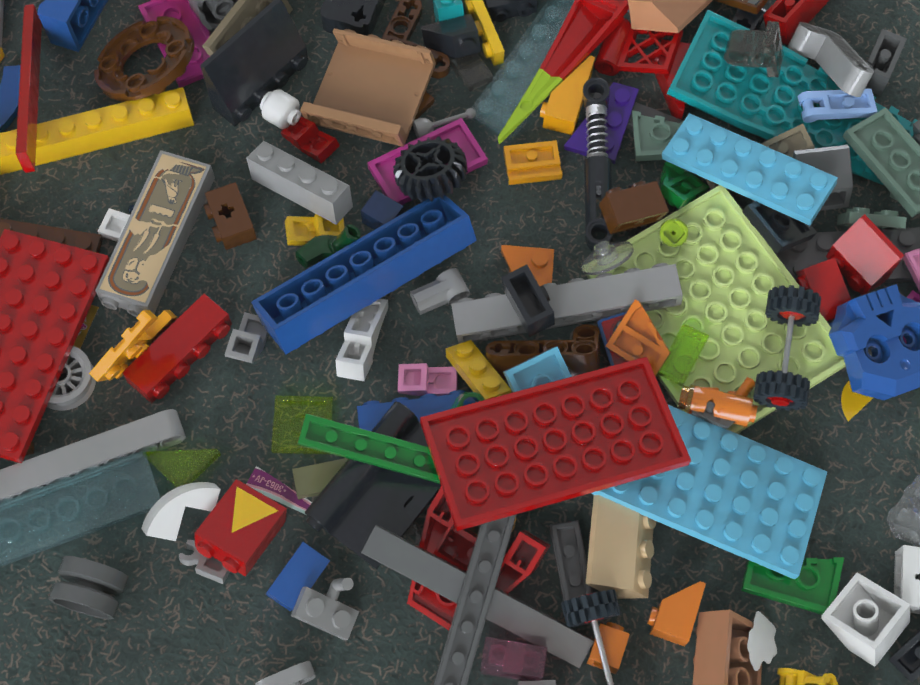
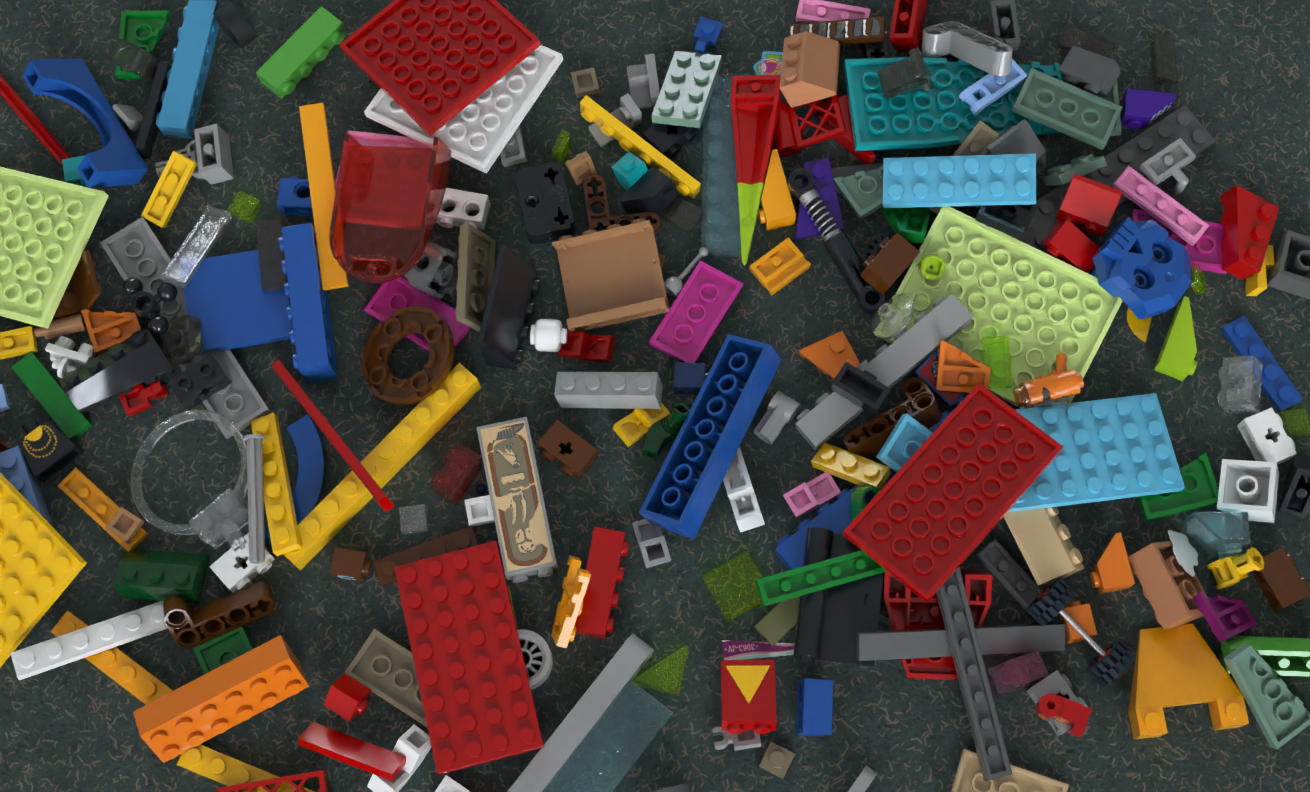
camera: 25 degrees left, 5 degrees up
(54, 201) = (413, 519): none -> clear plate
(117, 182) = (457, 474): none -> clear red brick
(166, 514) = (684, 716): white brick -> none
(230, 606) = (776, 760): none -> dark tan plate
(325, 611) = (854, 720): light grey plate -> none
(430, 169) = (716, 326): black gear -> none
(783, 388) = (1061, 280): black axle -> none
(808, 639) = (1218, 531): none -> clear light blue slope
(878, 442) = (1179, 347): none -> lime slope

